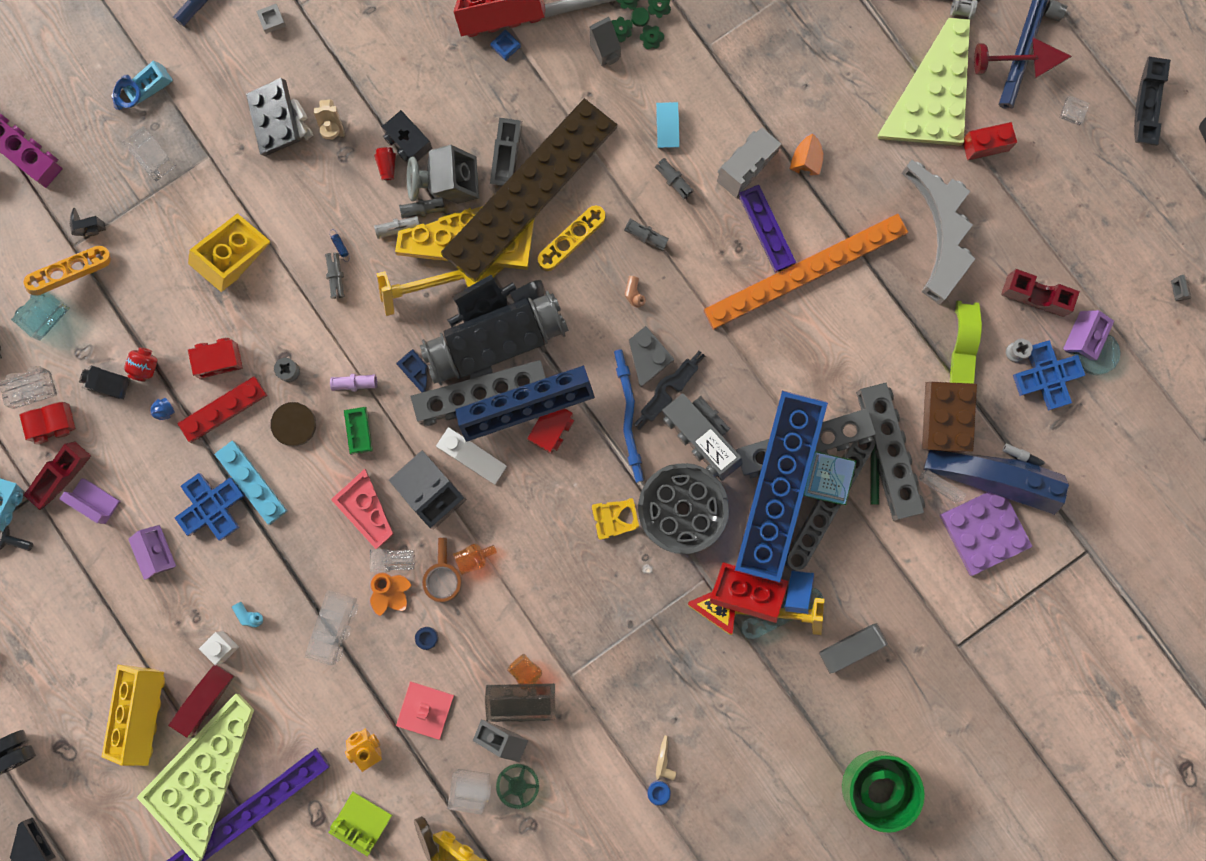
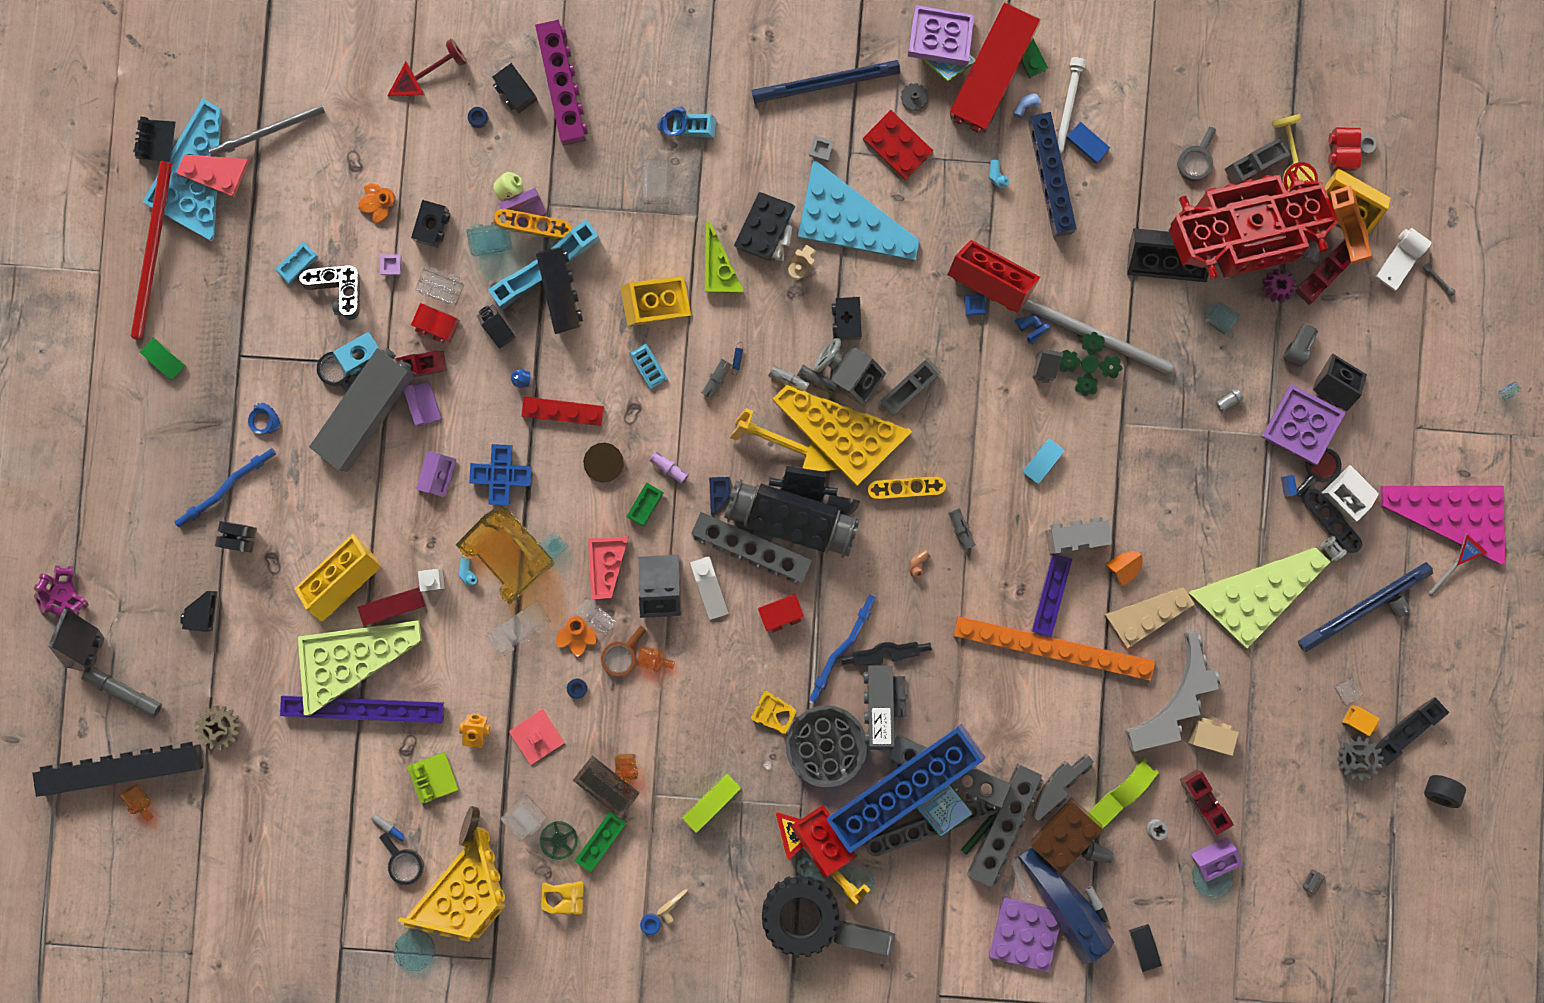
camera: 40 degrees right, 5 degrees up
(21, 256) = (508, 186): none -> yellowish green head
(37, 547) = (362, 409): none -> dark grey brick
(48, 254) = (526, 202): none -> medium lavender panel
(85, 227) = (571, 202): black plate -> none
(95, 332) = (527, 278): none -> medium azure arch
(131, 304) = (558, 289): none -> black slope
(140, 364) = (531, 333): red head -> none
(215, 358) = (586, 371): red brick -> none
(248, 306) = (639, 351): none -> medium azure slope
(251, 482) = (542, 480): medium azure plate -> none
(265, 186) = (718, 270): none -> lime wing
(266, 569) = (507, 552): none -> clear yellow windscreen
(290, 373) = (629, 424): dark grey wheel -> none
(305, 529) = (554, 545): none -> clear light blue plate
(339, 59) = (846, 219): none -> medium azure wing
(385, 162) = (818, 325): red cone -> none
(500, 741) = (571, 800): dark grey slope -> none
(524, 403) = (775, 584): dark blue brick -> none
(529, 190) = (905, 429): dark brown plate -> none
(555, 756) = (600, 841): none -> green plate
(571, 829) = (571, 898): none -> yellow piece
(575, 22) = (1024, 323): none -> blue piece
(624, 640) = (711, 803): none -> lime slope
(648, 355) = (891, 617): dark grey wing -> none
(674, 178) = (1015, 504): dark grey pin -> none
(799, 592) = (859, 870): blue tile -> none
(813, 682) = (805, 943): none -> black tyre
(858, 187) = (1143, 618): none -> tan wing
(906, 389) = (1053, 793): none -> dark grey slope
(988, 411) = (1097, 853): none -> dark grey cone
(989, 141) = (1266, 663): red brick -> none
(998, 236) = (1213, 737): none -> tan brick
(1044, 57) = (1358, 636): dark red piece -> none
(1049, 375) = (1163, 864): blue plate -> none
(1094, 457) = (1145, 948): none -> black slope
(1105, 125) = (1361, 720): none -> light orange brick
(1130, 169) = (1351, 768): none -> dark grey gear

